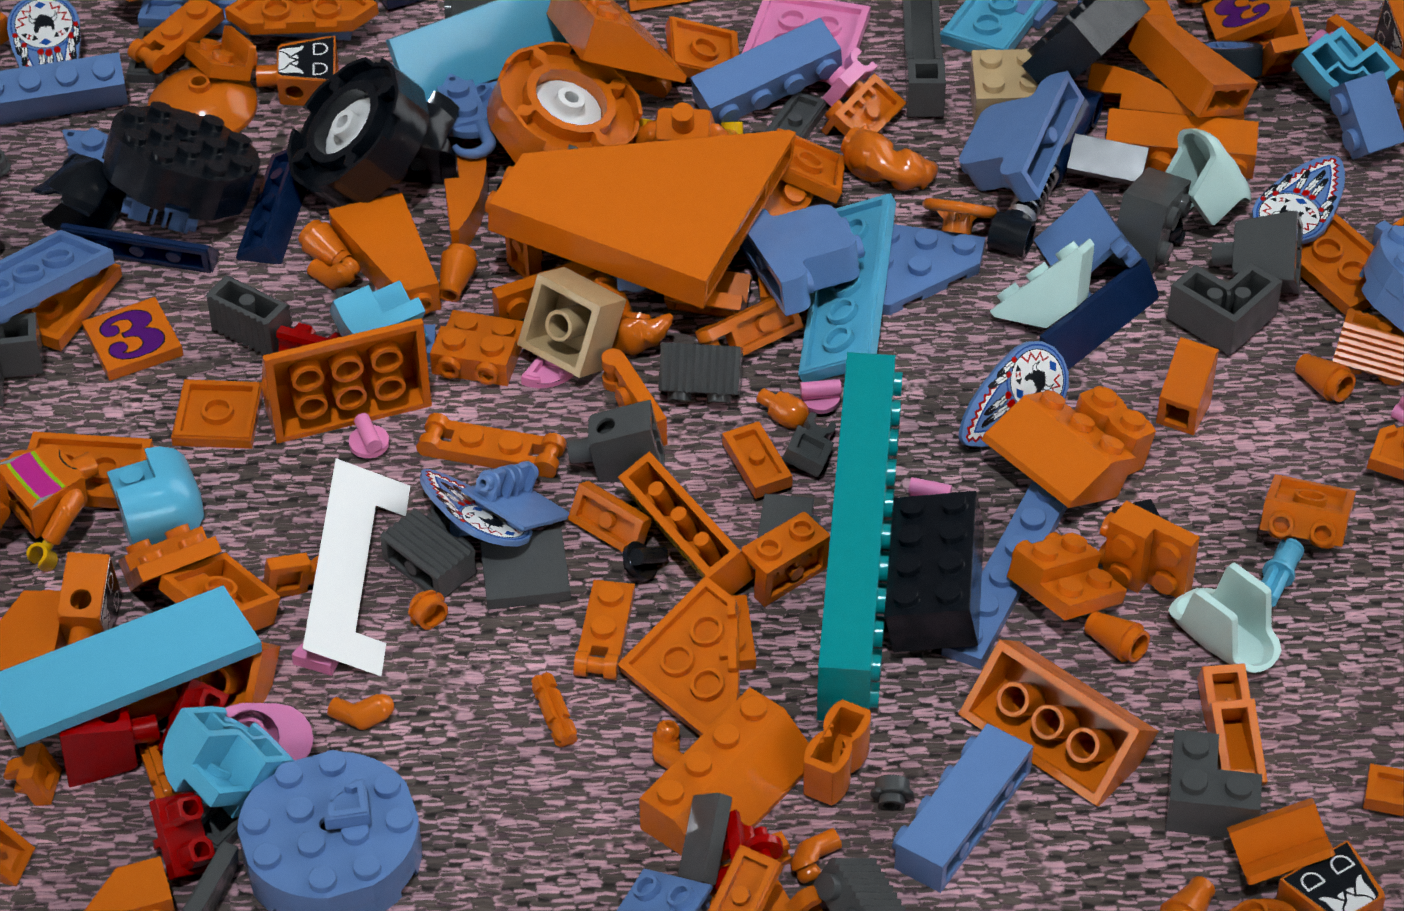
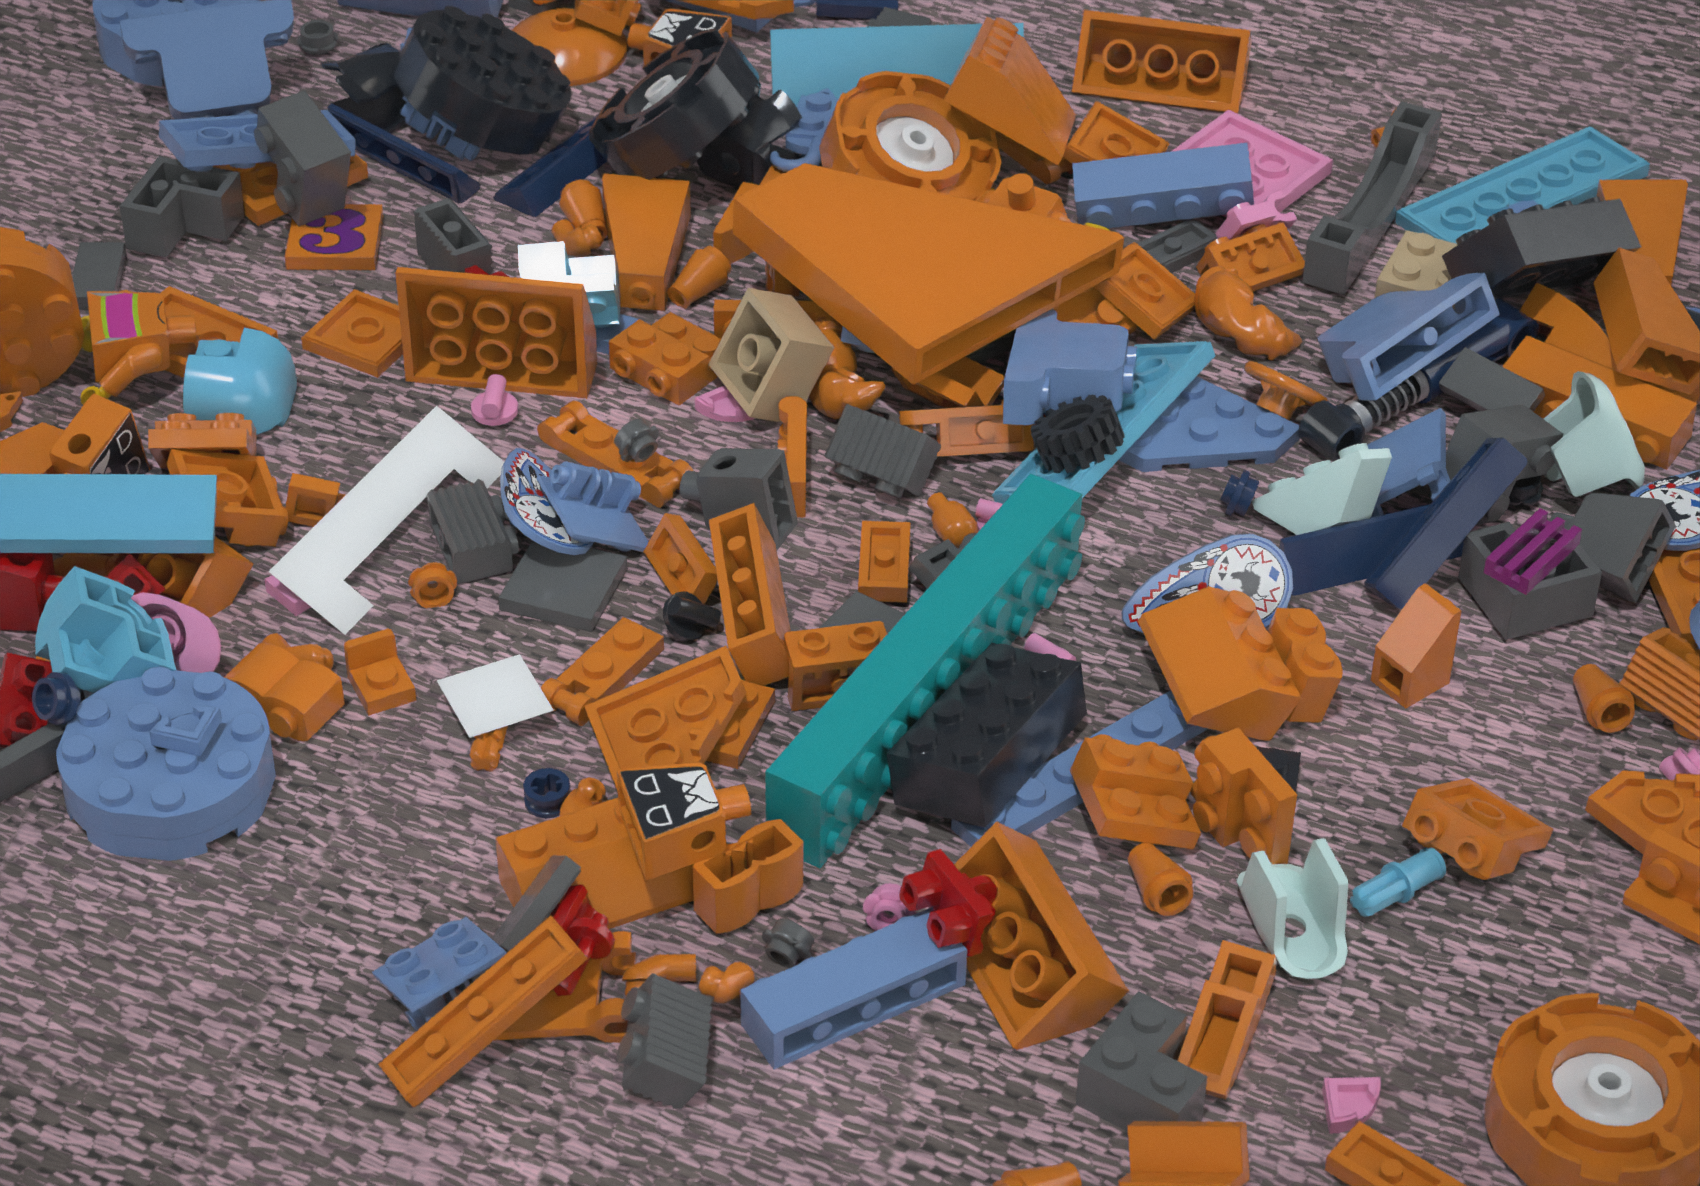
camera: 25 degrees right, 5 degrees down
(91, 276) = (308, 157): none -> dark grey brick
(223, 821) = (56, 698): none -> dark blue plate
(387, 736) = (292, 692): none -> orange brick
(436, 699) = (378, 672): none -> orange bracket
(514, 431) = (636, 440): none -> dark grey plate
(544, 682) = (494, 695): none -> white sticker
(637, 756) = (545, 782): none -> dark blue bush
(774, 727) = (676, 814): none -> torso
(847, 305) = (1077, 433): none -> black tyre
(878, 841) = (726, 985): none -> orange arm
(947, 735) = (884, 899): none -> bright pink plate
(978, 308) = (1239, 493): none -> dark blue plate
(1010, 712) = (960, 902): none -> red hips
(1151, 281) = (1446, 521): none -> dark blue slope
(1233, 261) = (1524, 547): none -> magenta tile
(1346, 751) = (1349, 1100): none -> bright pink tile

